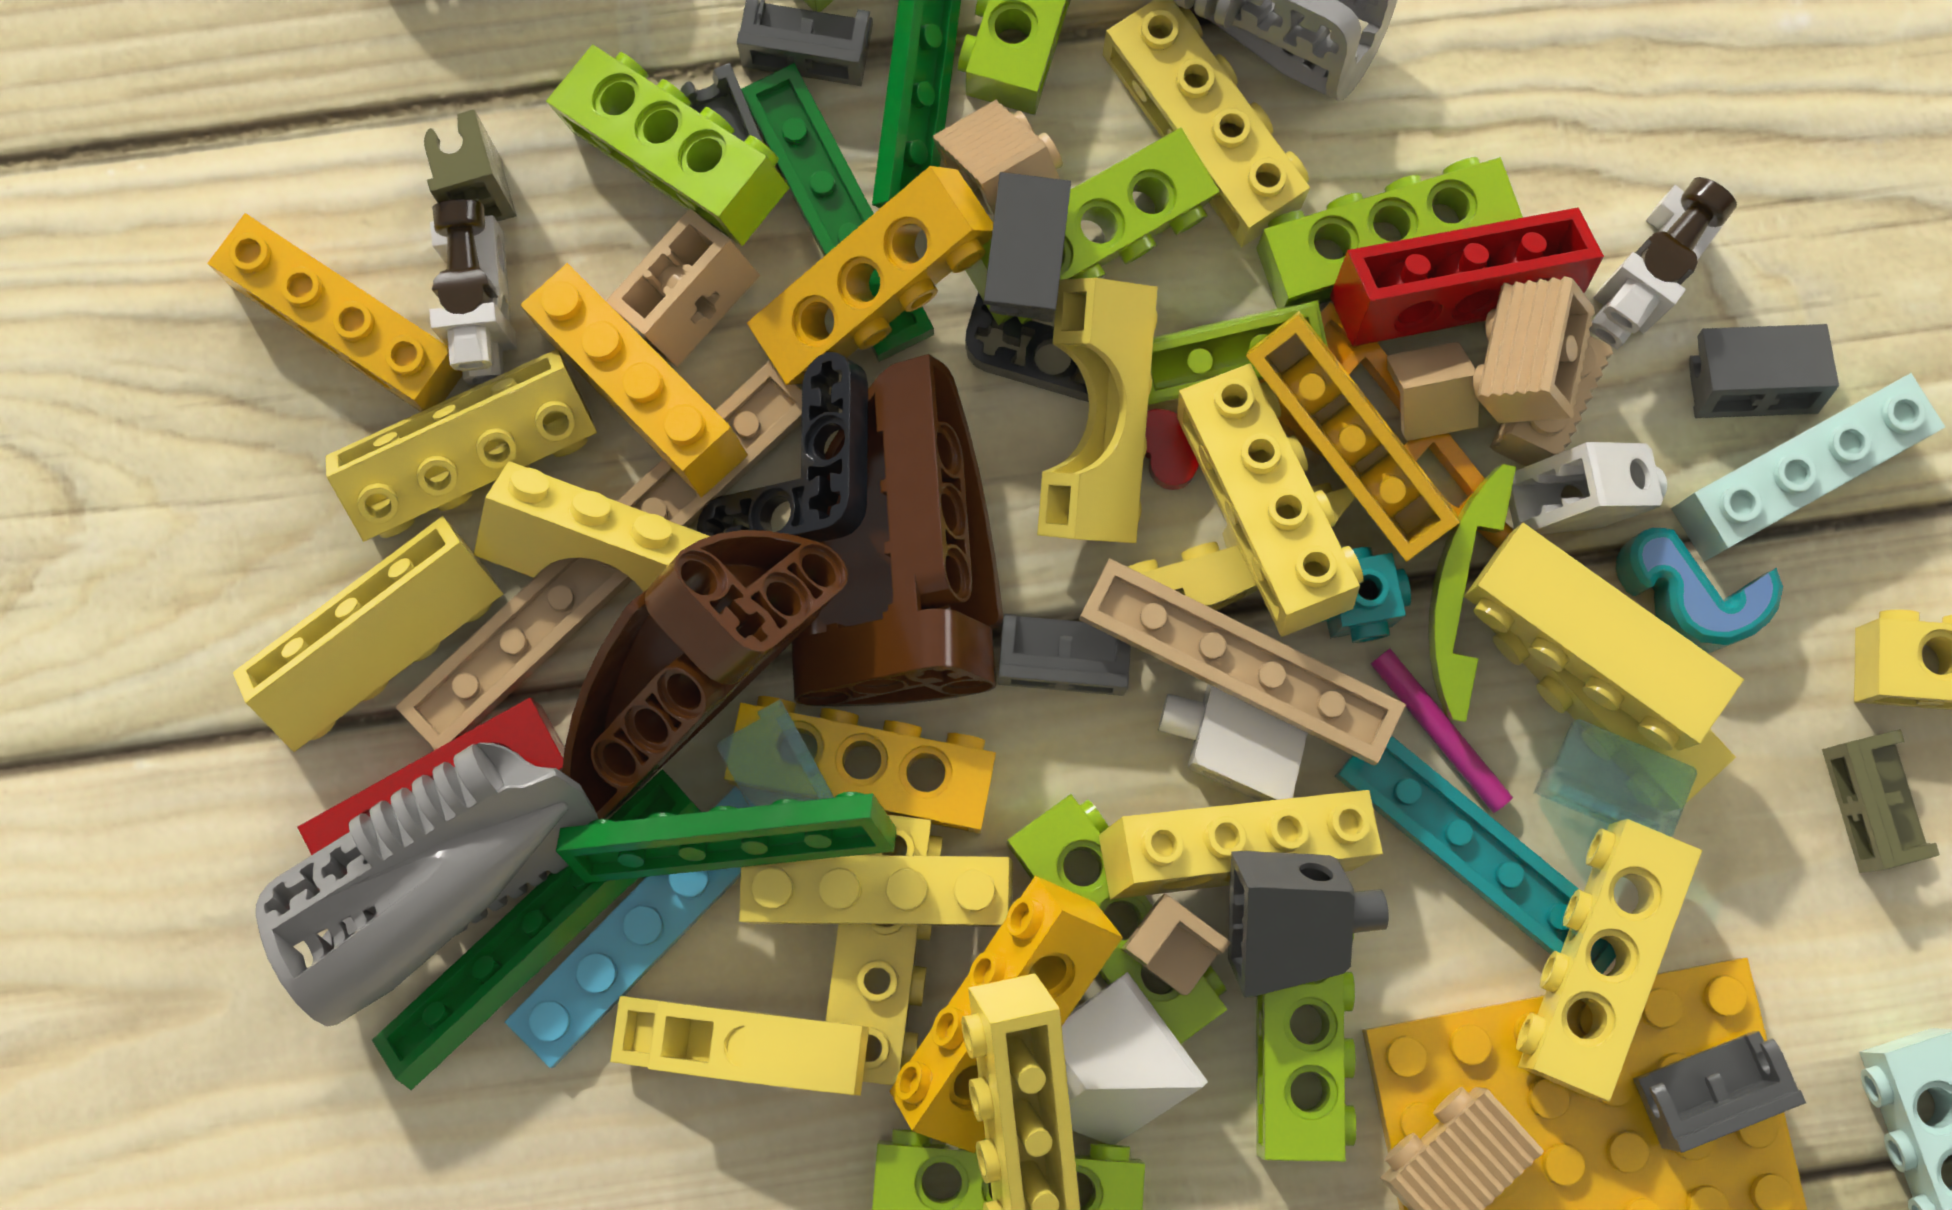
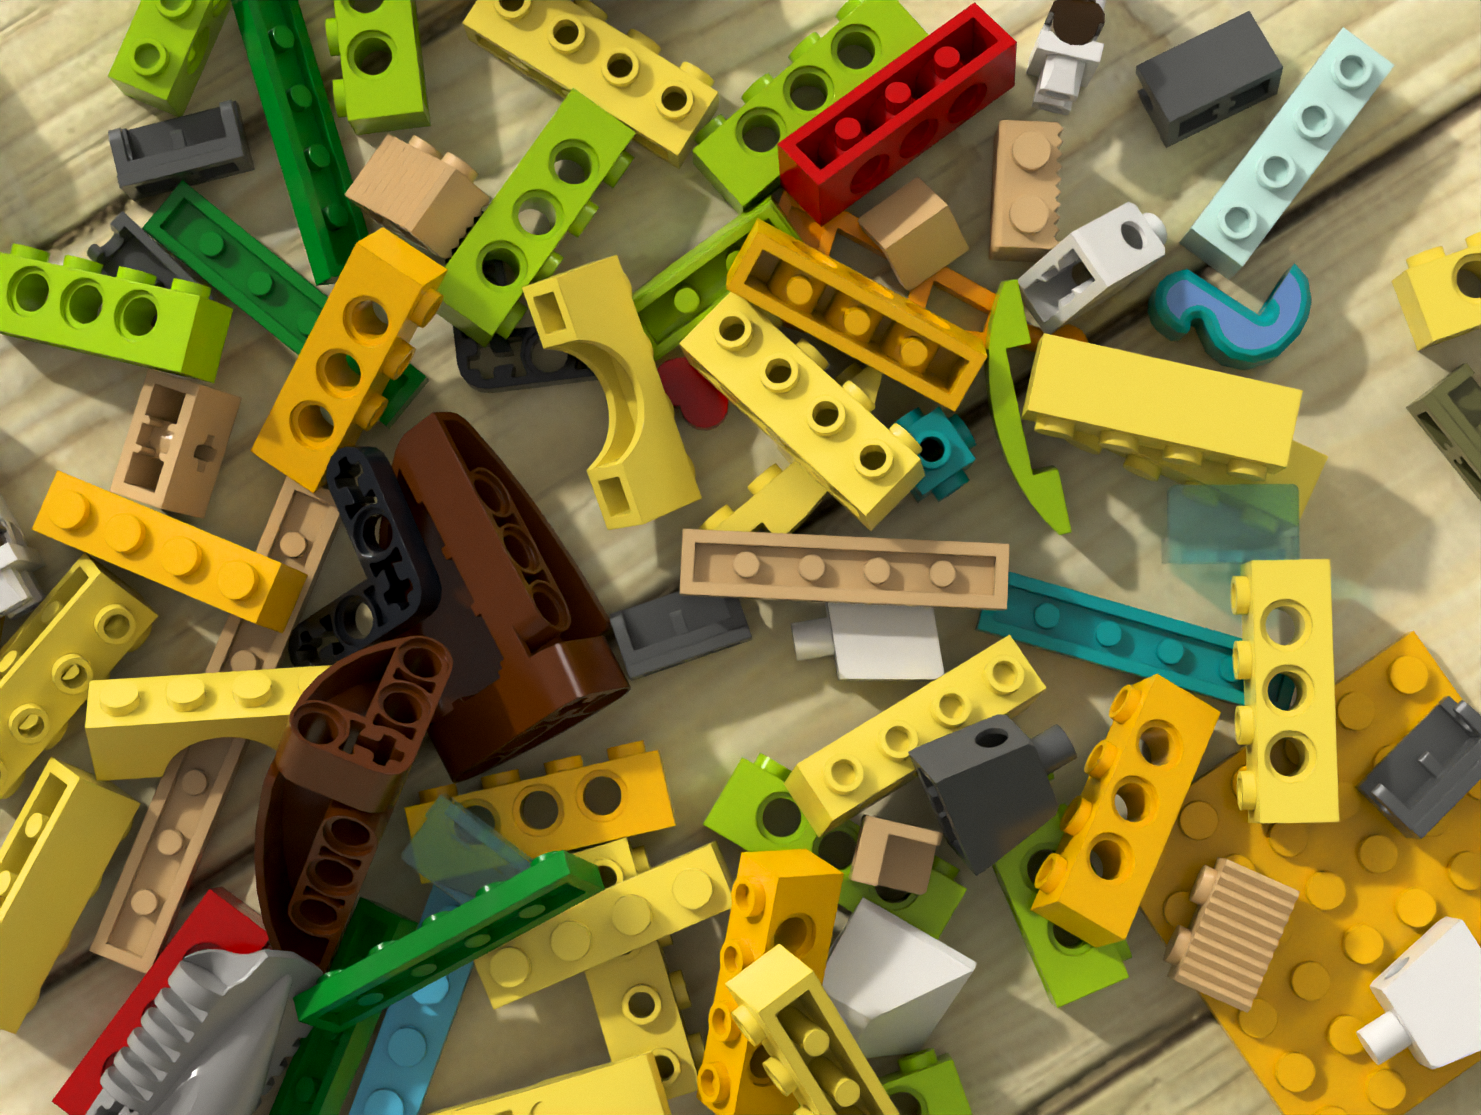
camera: 20 degrees left, 5 degrees up
(1027, 246) = (478, 273): dark grey hinge -> none
(1442, 731) = (1054, 545): dark pink bar -> none
(1485, 953) = (1177, 734): none -> yellow brick
(1534, 351) = (989, 163): tan brick -> none

